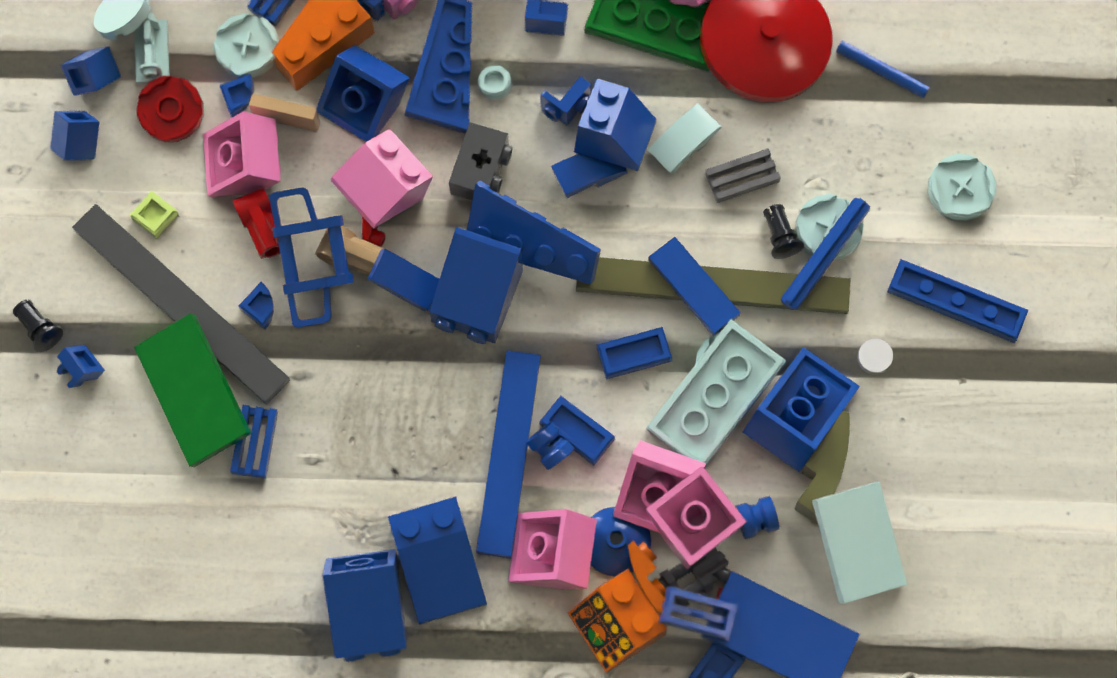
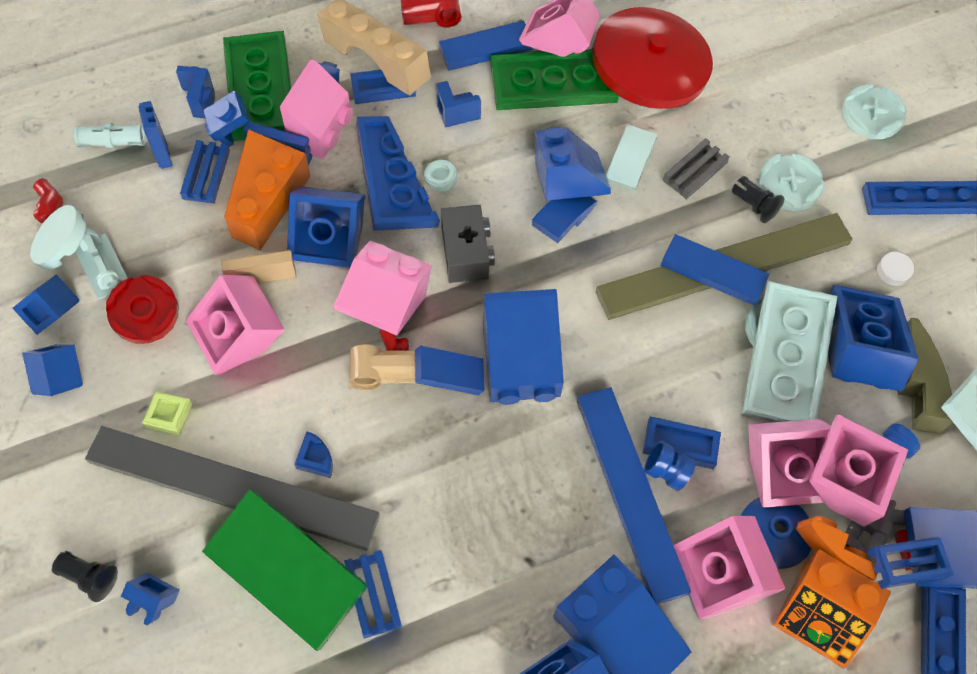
camera: 30 degrees left, 10 degrees down
(238, 94) = (203, 271): blue tile -> none
(245, 45) = (194, 228): light aqua tile -> none
(257, 216) = (275, 370): red piece -> none
(284, 233) = (312, 374): blue bar -> none
(541, 242) = (576, 284): blue wing -> none
(571, 104) = (513, 172): blue bracket -> none
(634, 353) = (692, 351): blue tile -> none
(825, 254) = (808, 200): blue axle -> none
(882, 69) = (756, 49): blue bar -> none

